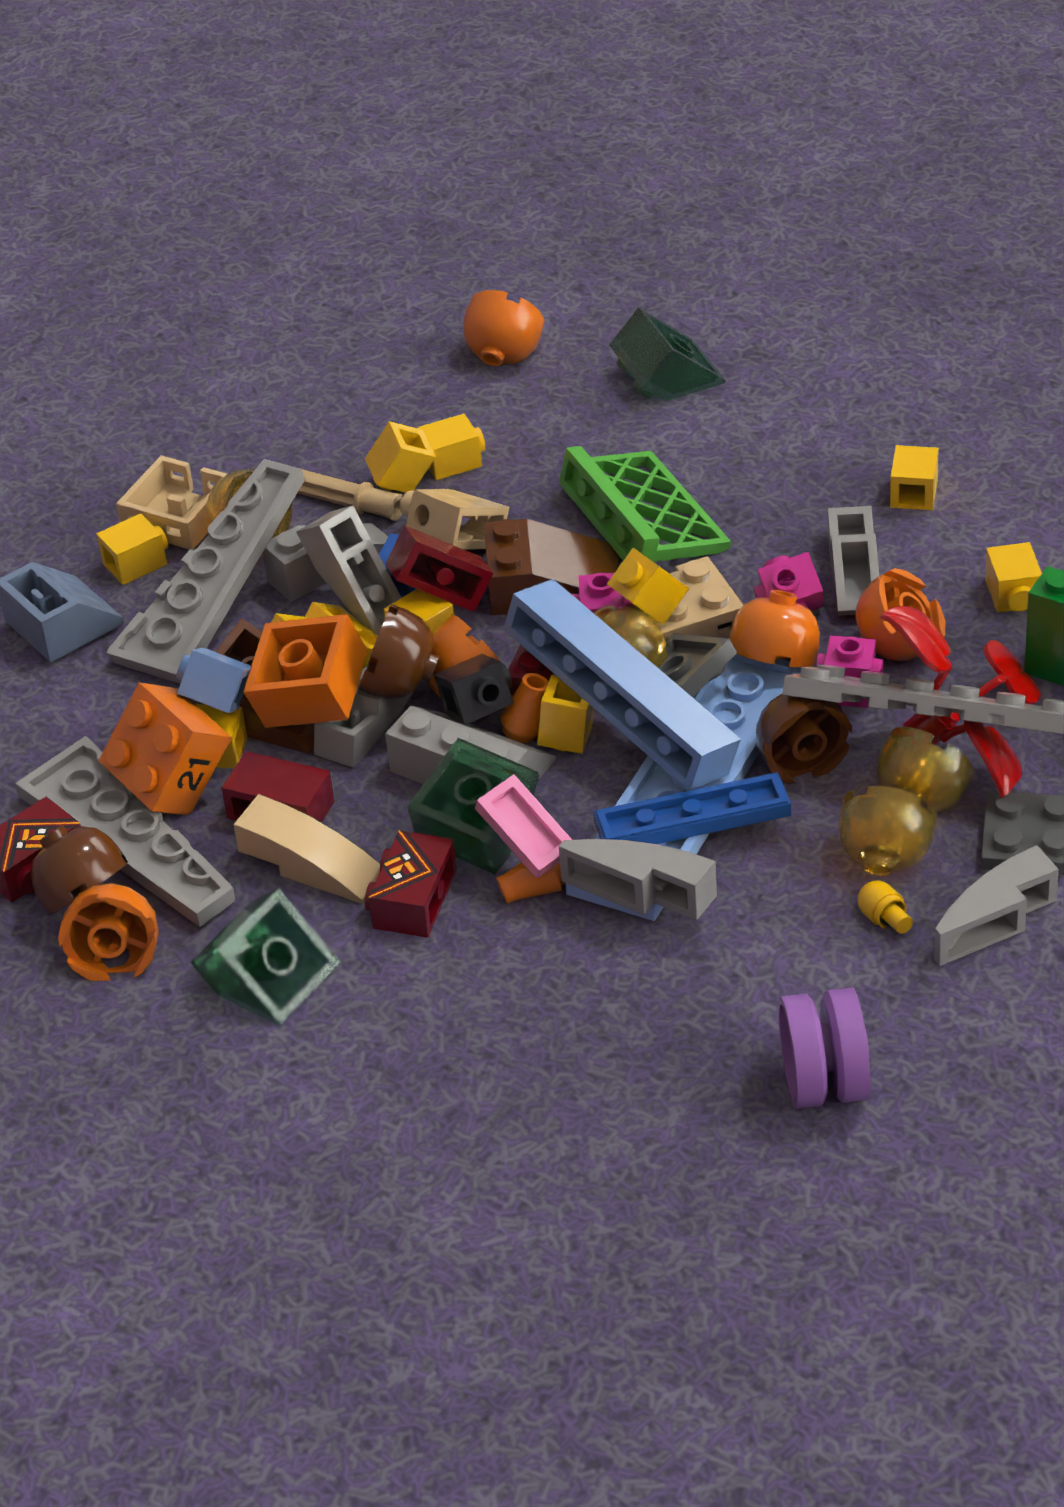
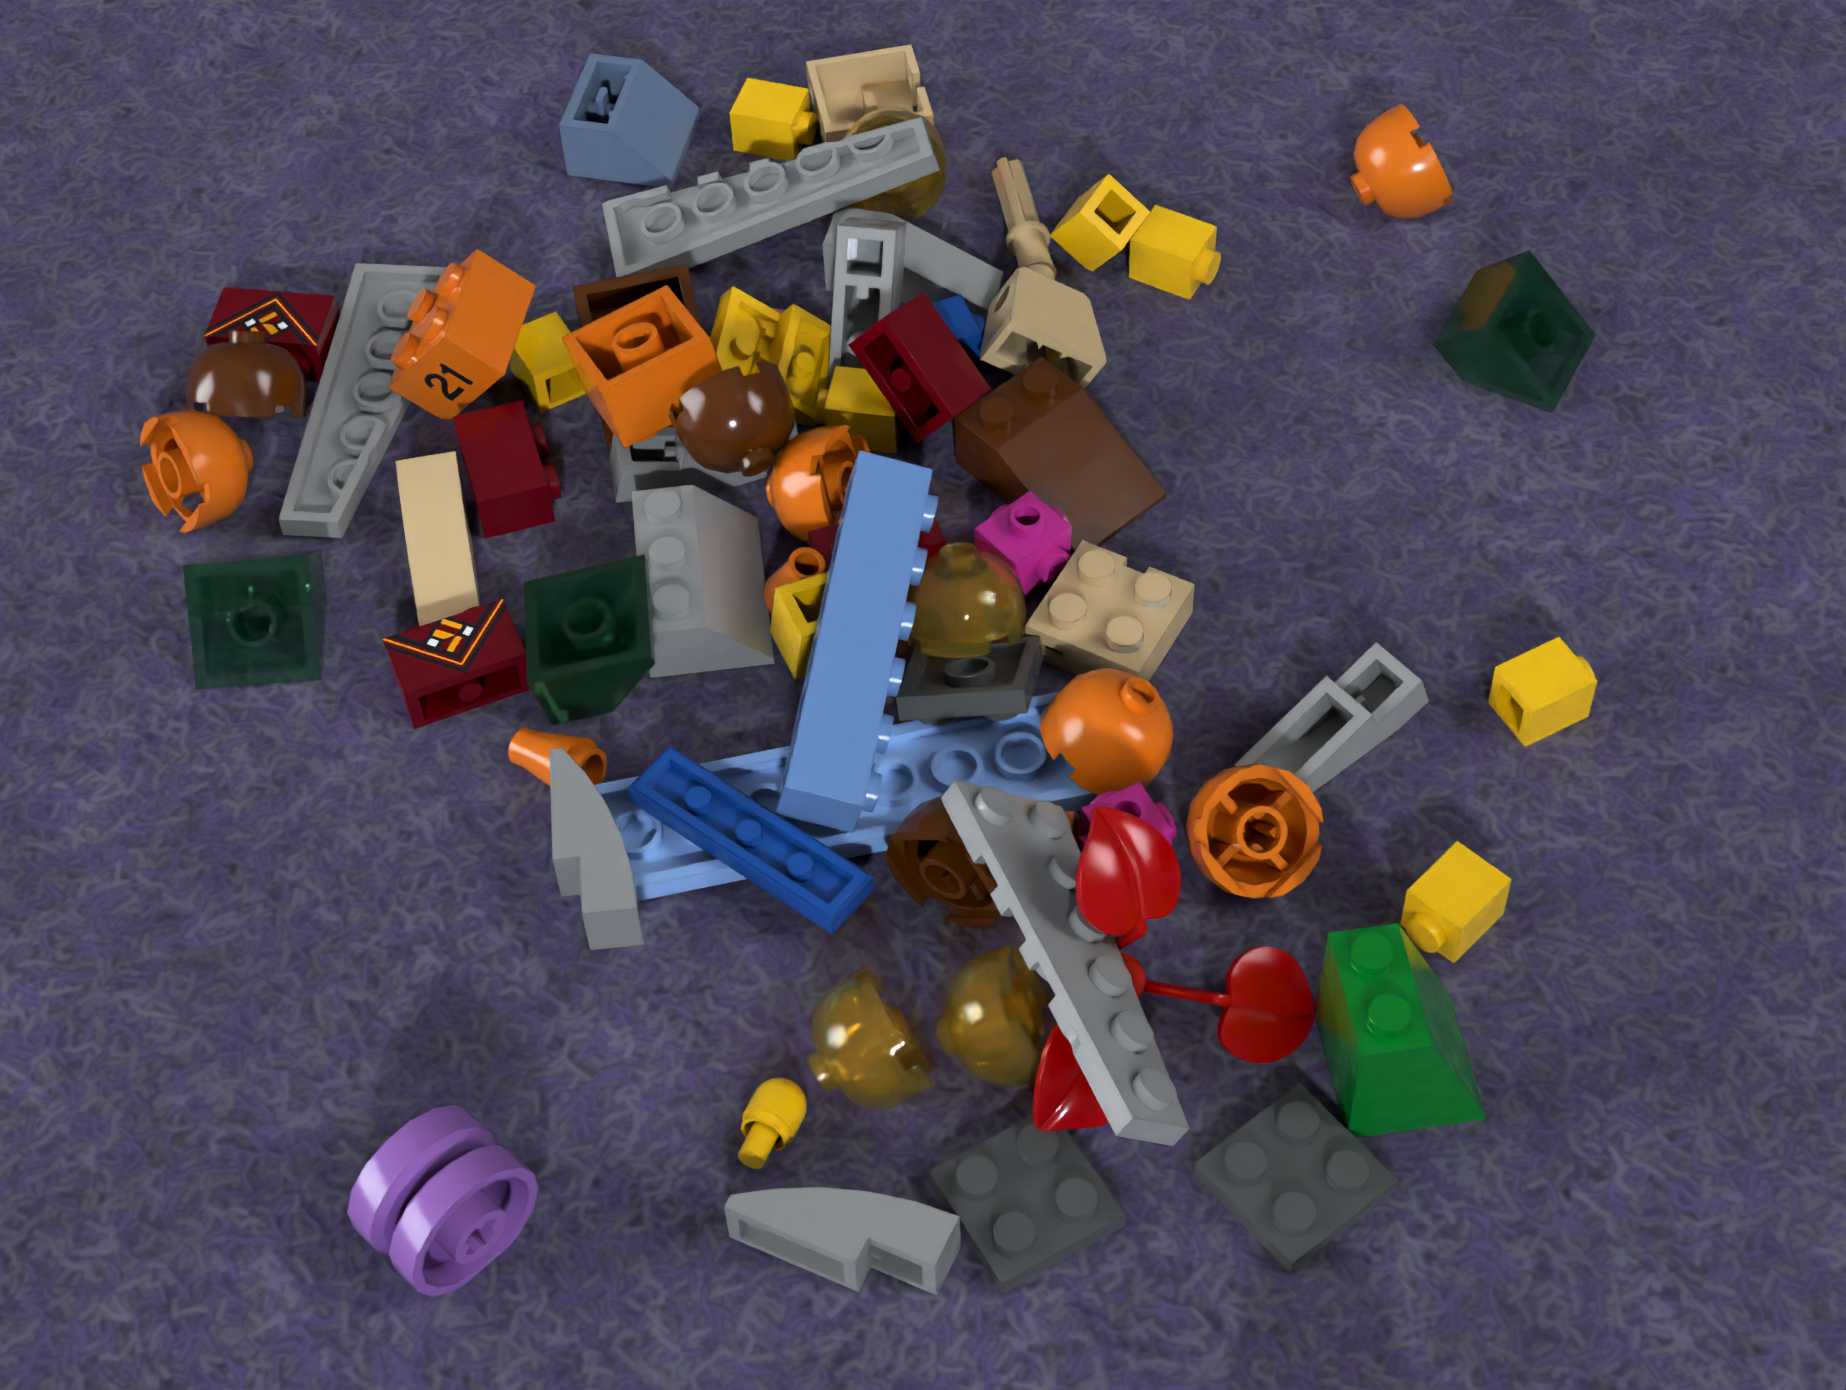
camera: 50 degrees right, 10 degrees up
(212, 679) = (558, 299): medium blue brick -> none
(474, 688) = (760, 519): black brick -> none
(523, 825) = (569, 698): bright pink tile -> none
(620, 517) = (1192, 464): bright green fence -> none
(648, 586) = (1046, 560): yellow brick -> none
(793, 576) = (1213, 693): dark pink brick -> none

